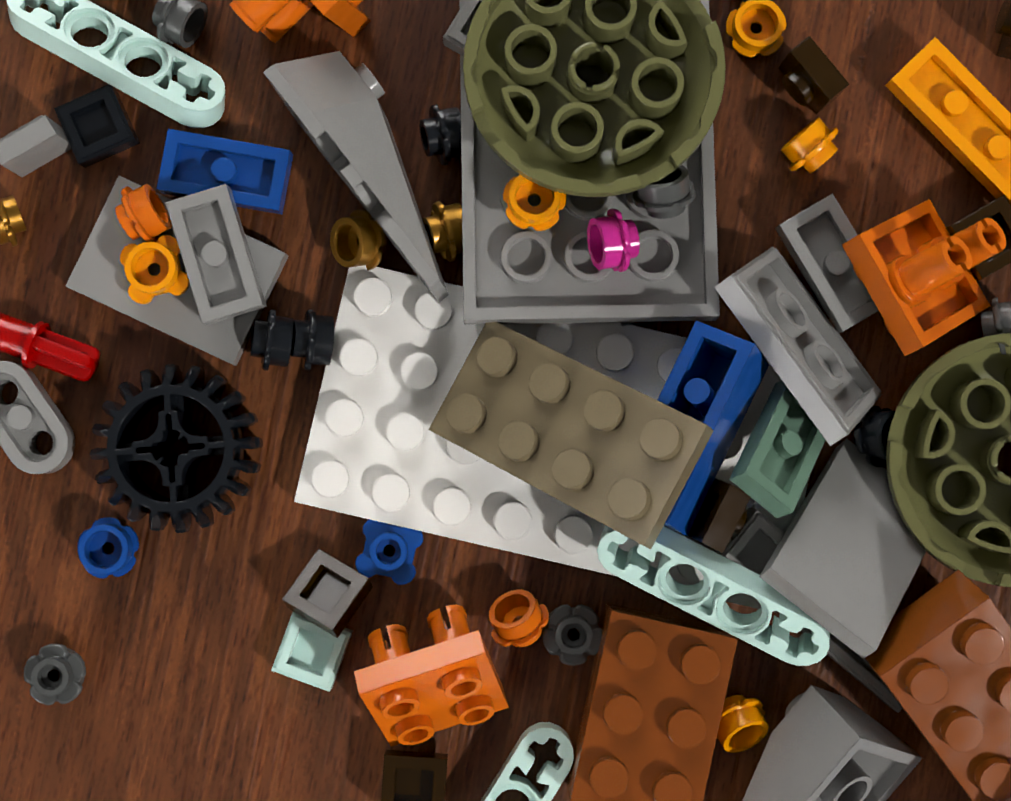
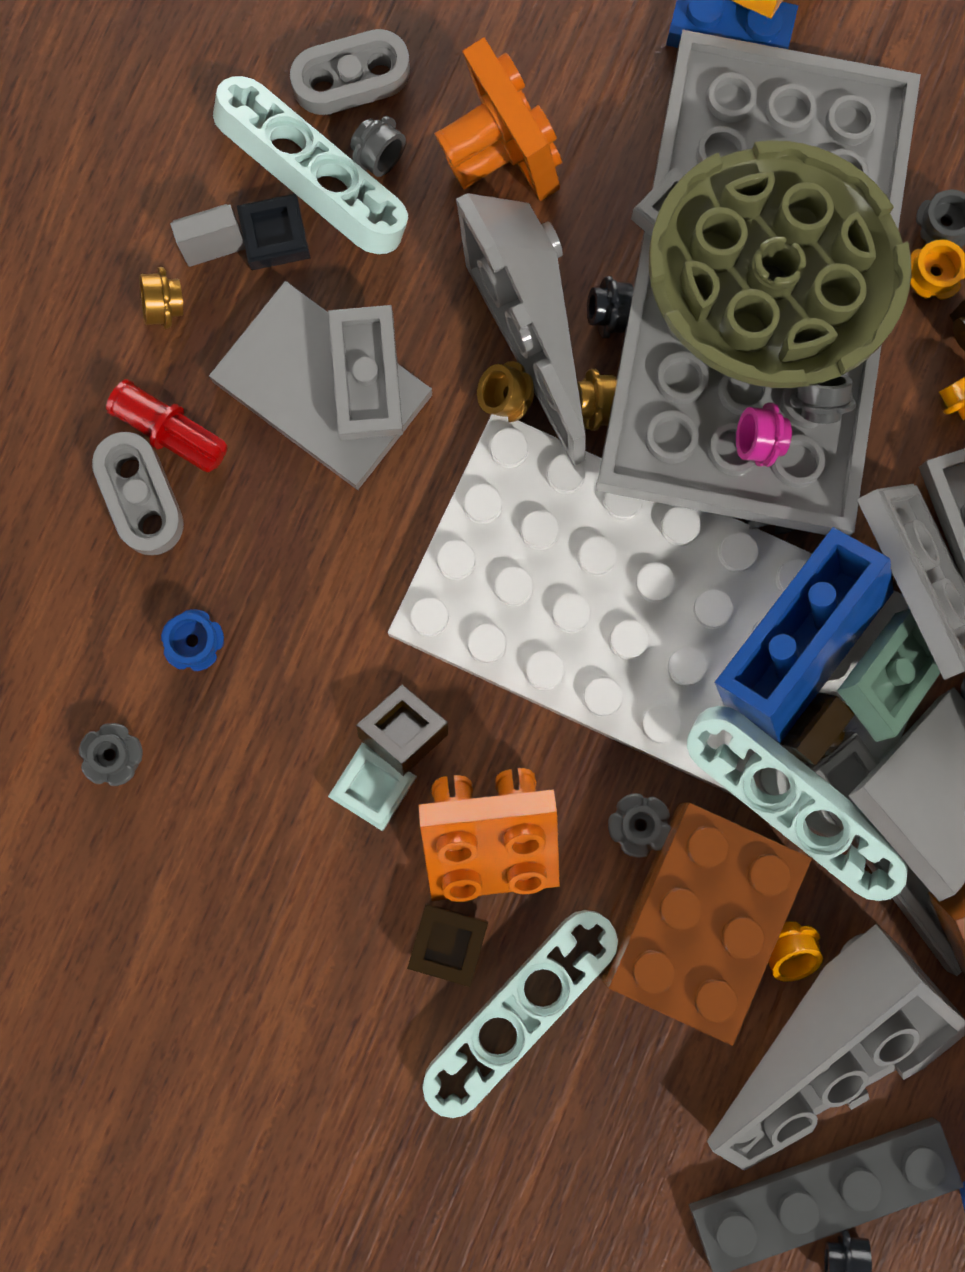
camera: 10 degrees right, 5 degrees down
(123, 451) = (291, 501): black gear -> none
(137, 263) = (296, 358): light orange plate -> none
(142, 213) = (302, 319): orange plate -> none
(201, 162) = (418, 303): blue plate -> none
(272, 340) = (401, 469): black plate -> none
(313, 339) = (441, 477): black plate -> none
(398, 566) = (477, 719): blue plate -> none
(517, 618) = (587, 797): orange plate -> none
(525, 215) = (679, 392): light orange plate -> none
(572, 432) = (687, 612): dark tan plate -> none

